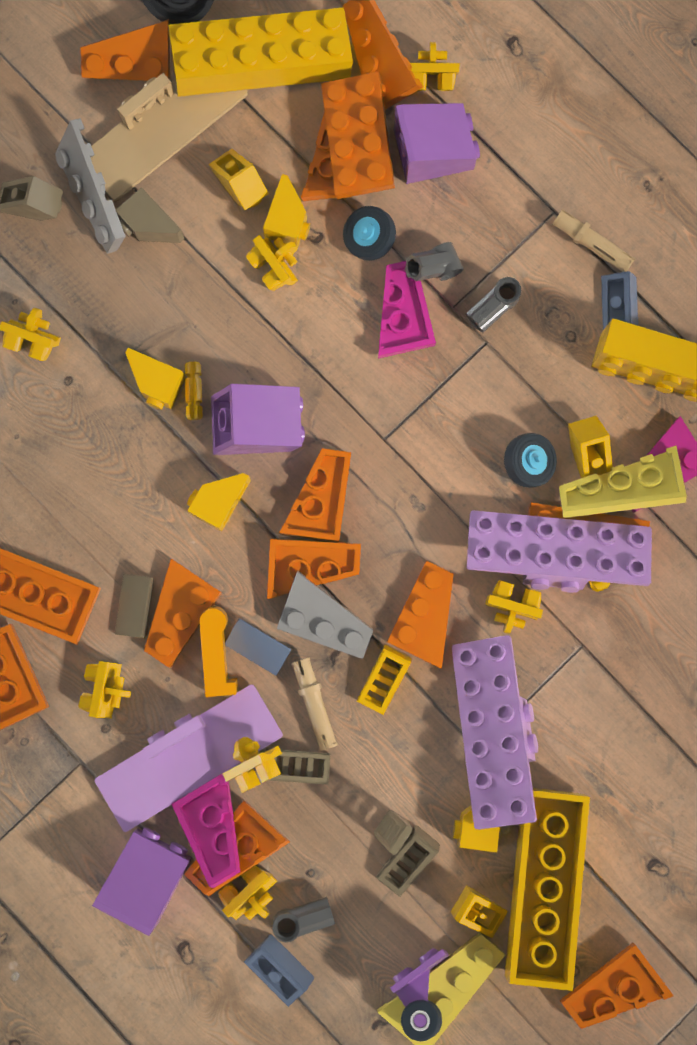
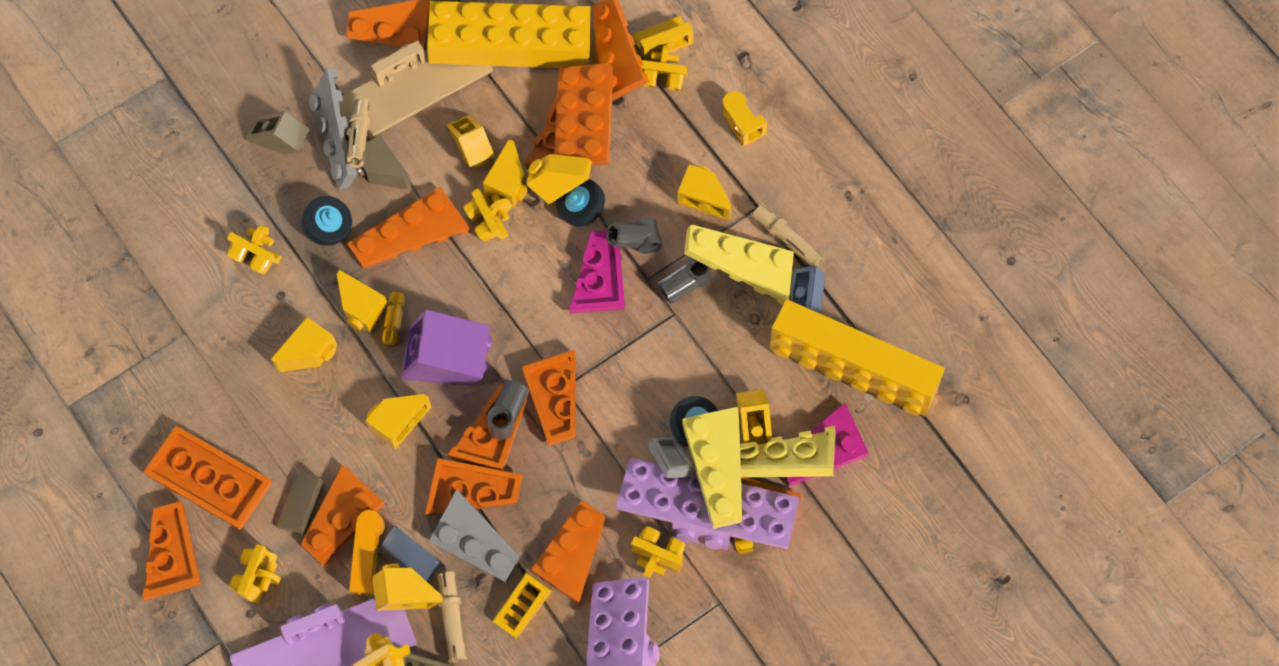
camera: 15 degrees right, 15 degrees down
(102, 292) = (326, 220): none -> black wheel
(107, 437) = (305, 348): none -> yellow slope
(117, 178) = (359, 125): none -> tan pin
(198, 283) = (417, 225): none -> orange wing
(260, 688) = (403, 590): none -> yellow slope
(334, 475) = (507, 408): none -> dark grey piece
(342, 208) = (557, 175): none -> yellow slope
(377, 450) = (554, 395): none -> orange wing
(426, 28) = (669, 33): none -> yellow panel
(434, 140) = (654, 129): medium lavender slope -> none
(499, 204) = (704, 193): none -> yellow slope
(513, 504) = (671, 457): none -> light grey tile
(524, 114) = (741, 118): none -> yellow leg
(555, 276) = (745, 260): none -> light yellow wing
(564, 501) = (716, 458): none -> light yellow wing

